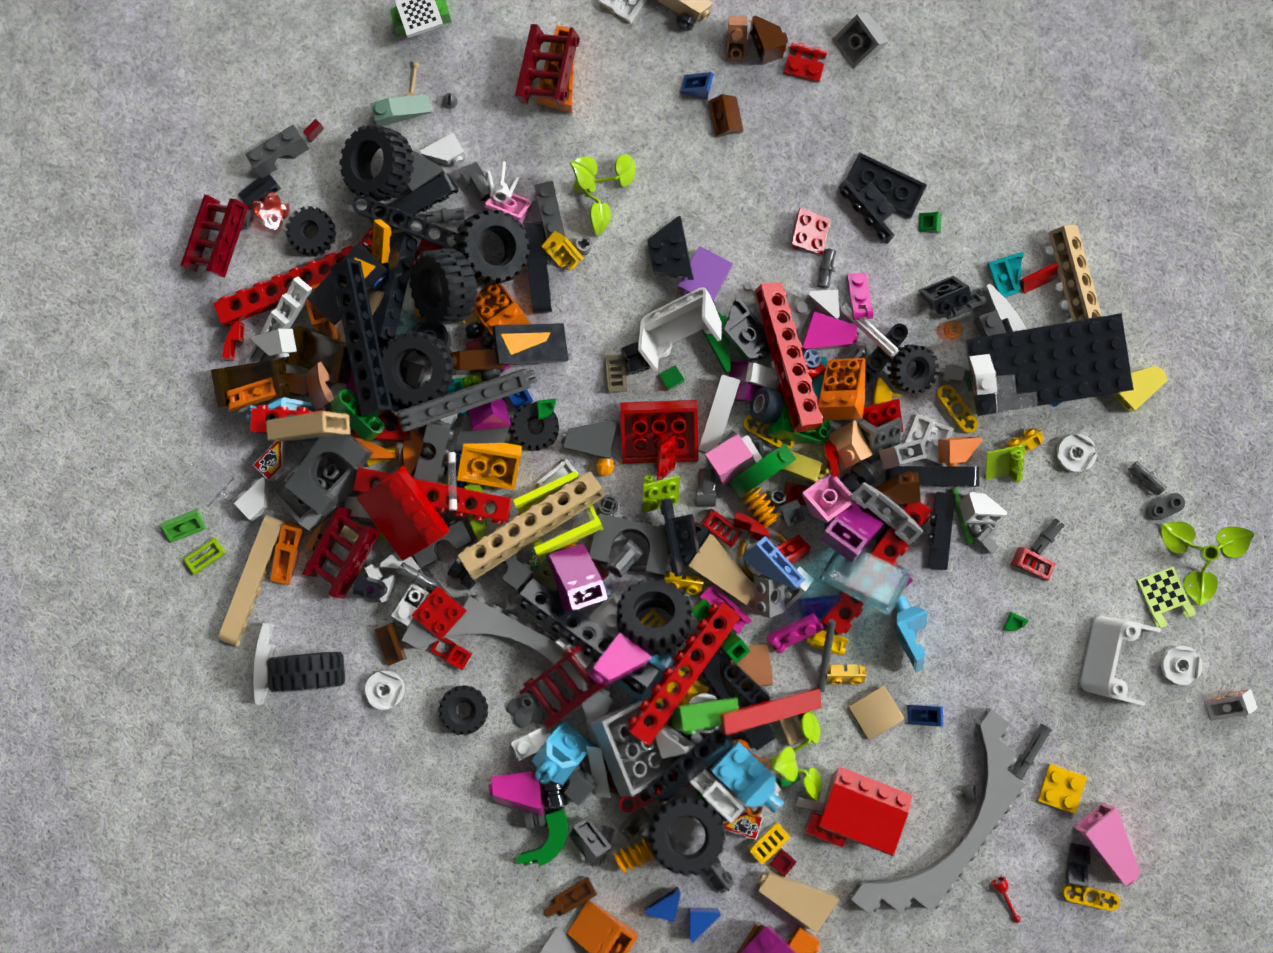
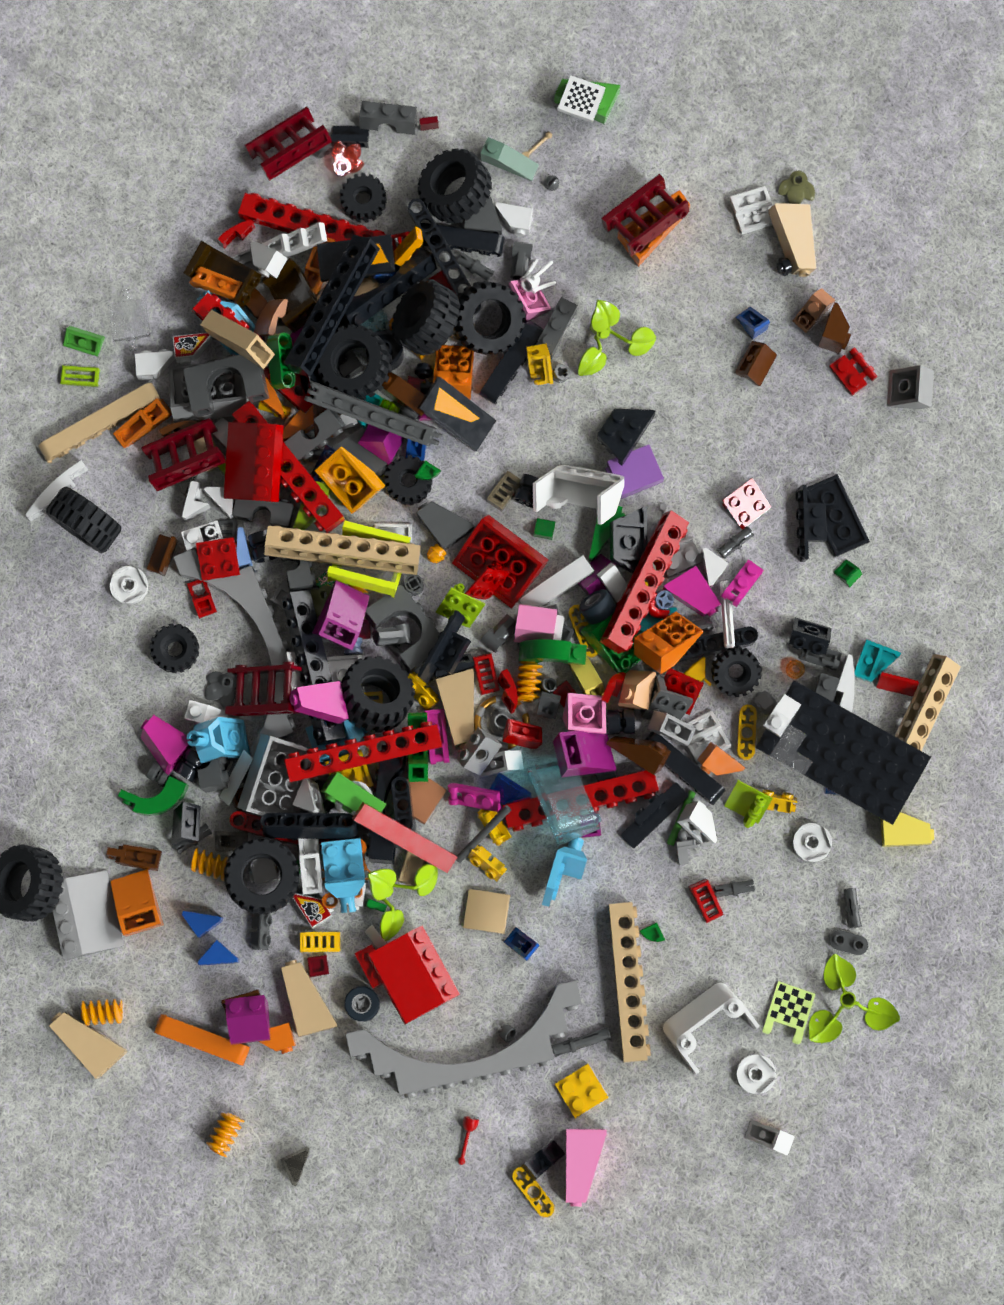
camera: 40 degrees right, 5 degrees down
(369, 587) = (182, 497): black rock -> none
(417, 576) = (224, 518): dark grey pin -> none
(451, 588) = (243, 553): none -> light blue slope
(452, 481) = (310, 467): clear bar -> none
(770, 562) = (499, 727): medium blue slope -> none
(848, 867) = (359, 998): none -> black wheel
(888, 511) = (622, 760): light grey slope -> none
(1076, 729) = (628, 911): none -> tan brick

